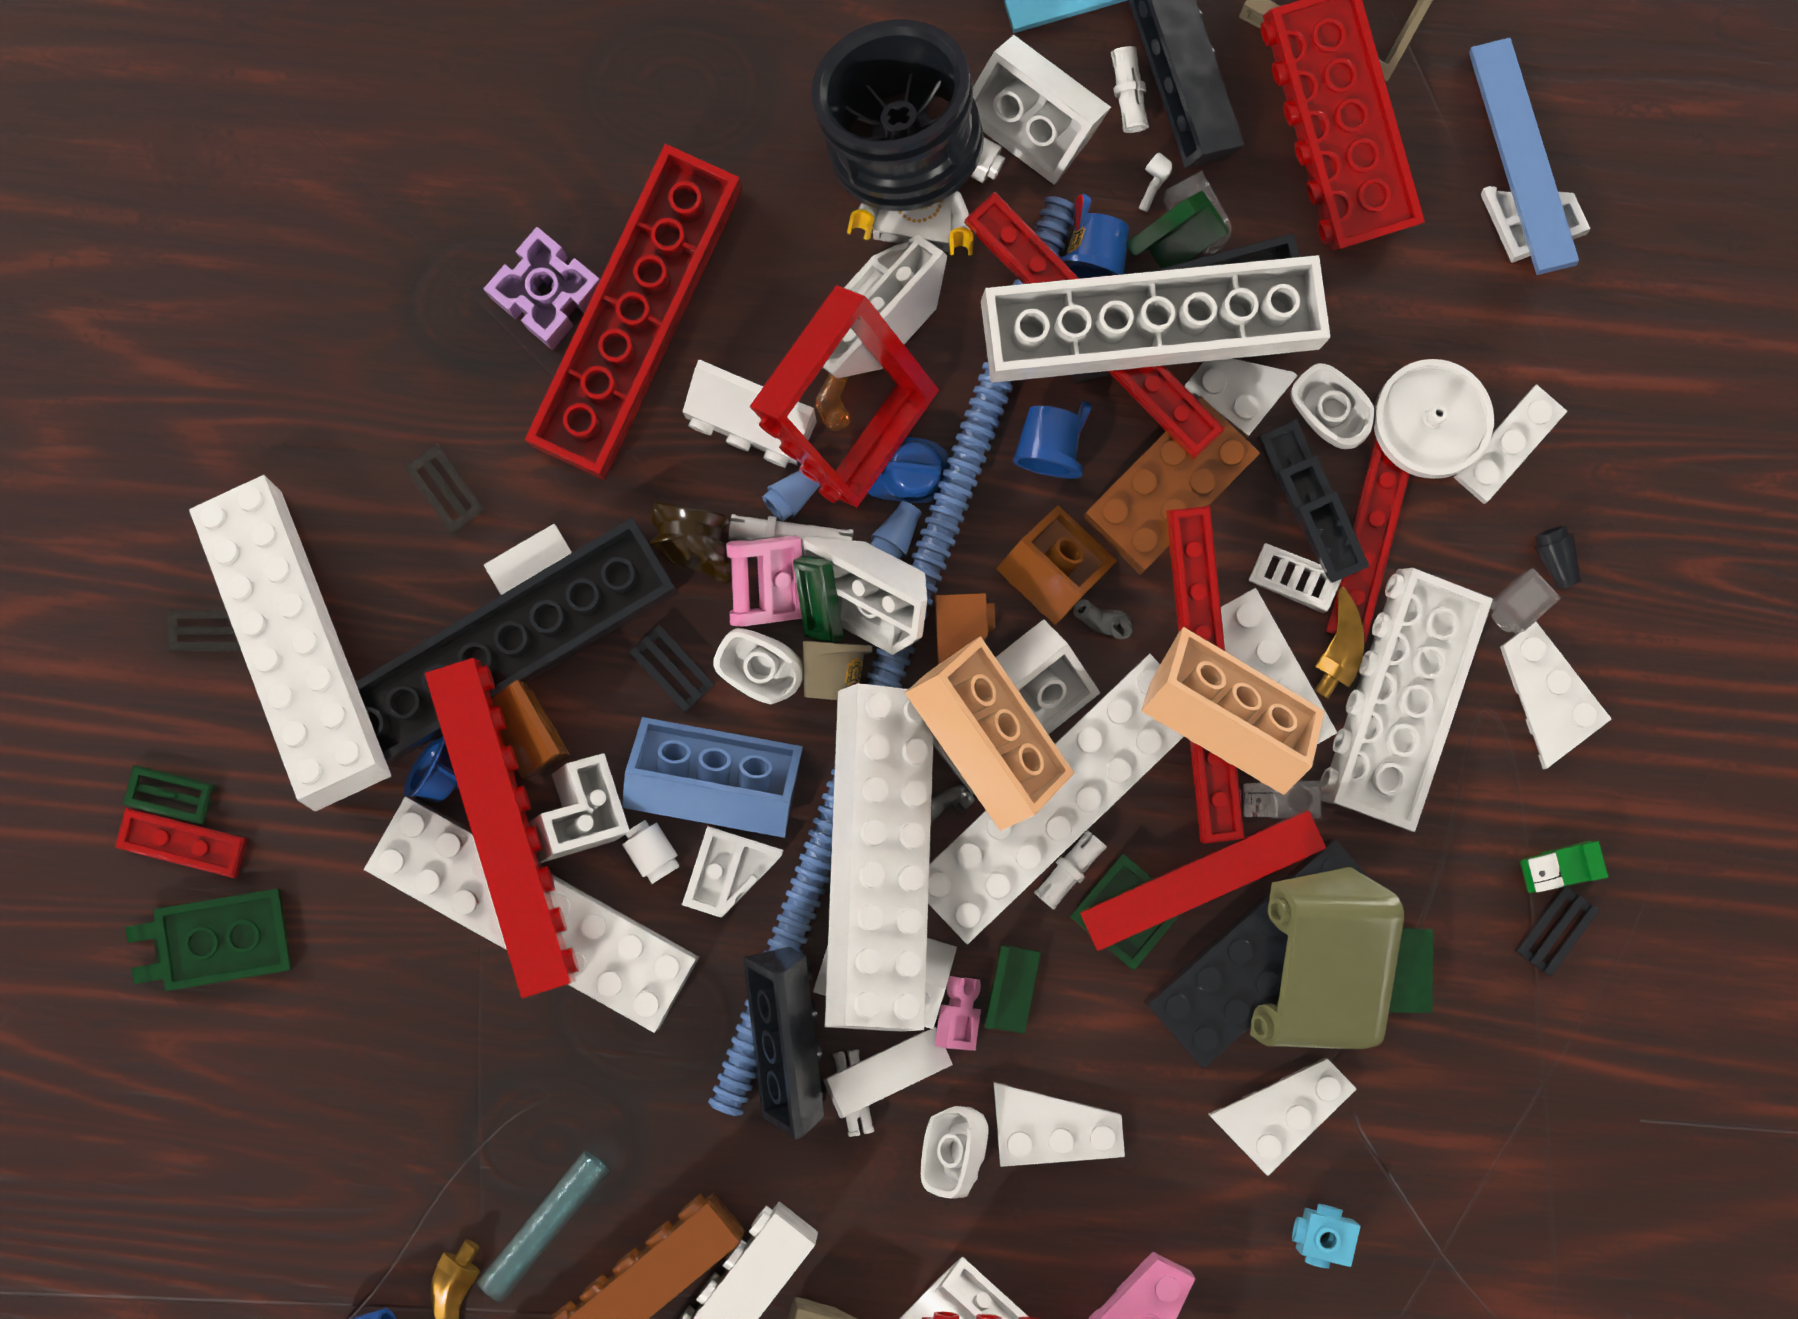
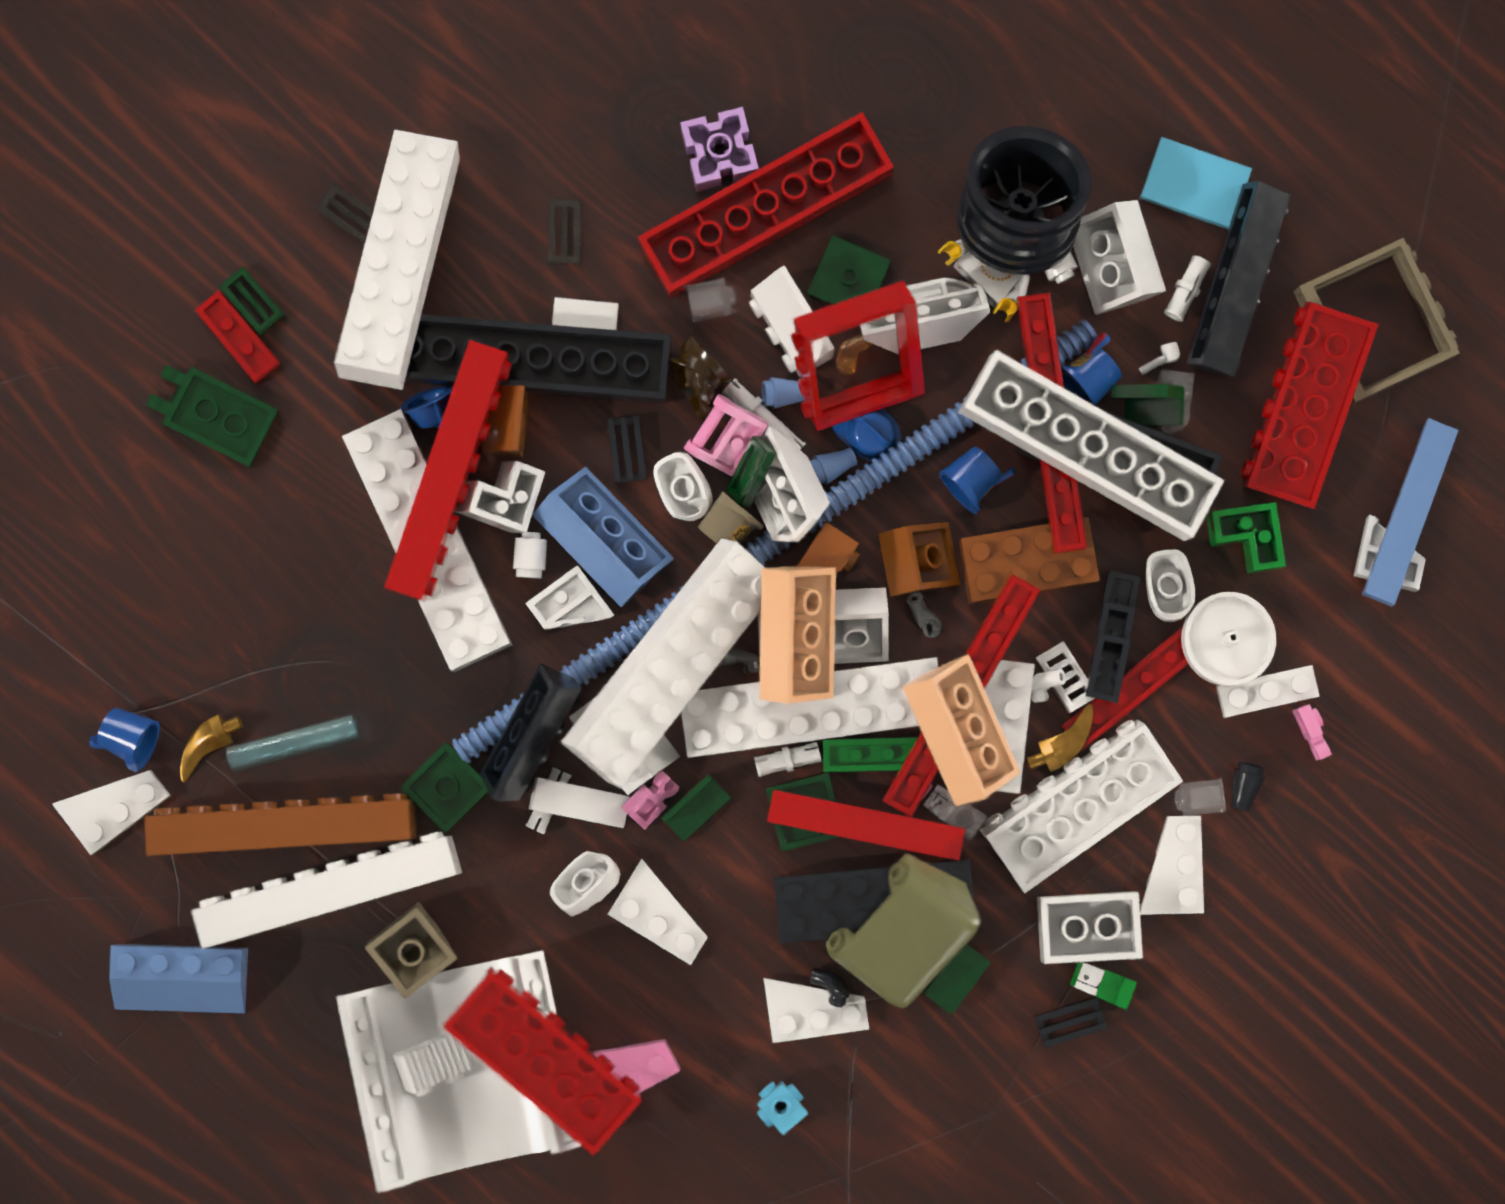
camera: 30 degrees right, 0 degrees up
(647, 451) = (710, 299): none -> clear brick
(736, 1157) = (445, 787): none -> dark green plate
(768, 322) = (847, 272): none -> dark green plate
(1148, 805) = (865, 754): none -> green plate
(1240, 390) = (1118, 532): white wing -> none
(1278, 596) = (1043, 682): none -> white arm
(1289, 1069) = (834, 985): none -> black arm
(1383, 286) = (1257, 529): none -> green brick
(1508, 819) = (1089, 927): none -> white brick
(1579, 447) = (1310, 723): none -> bright pink plate

